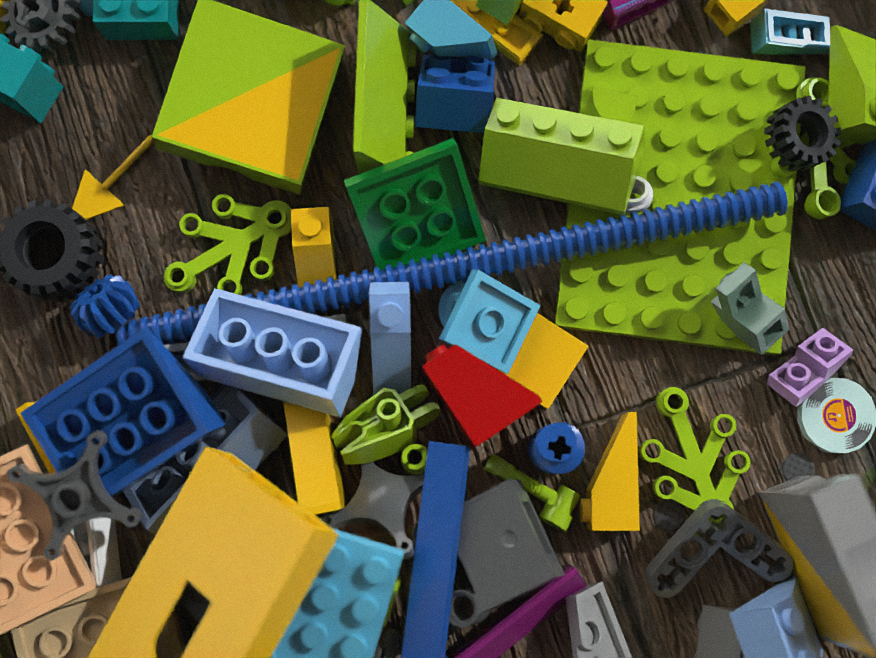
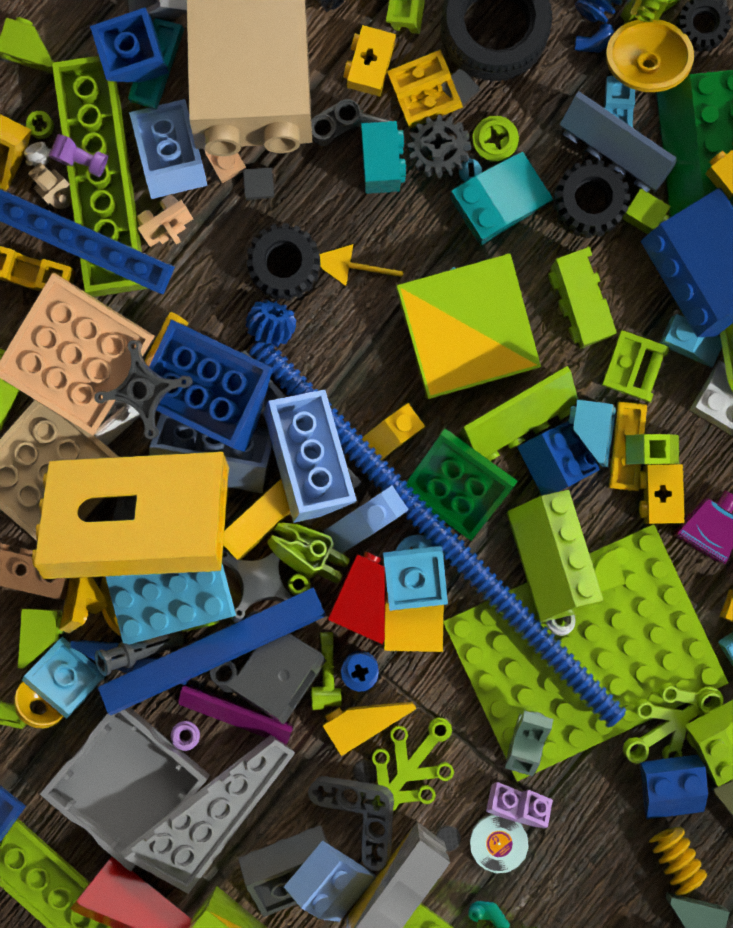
camera: 60 degrees right, 5 degrees up
(234, 244) = (365, 377): lime plant -> none
(819, 130) = (681, 719): black tyre -> none

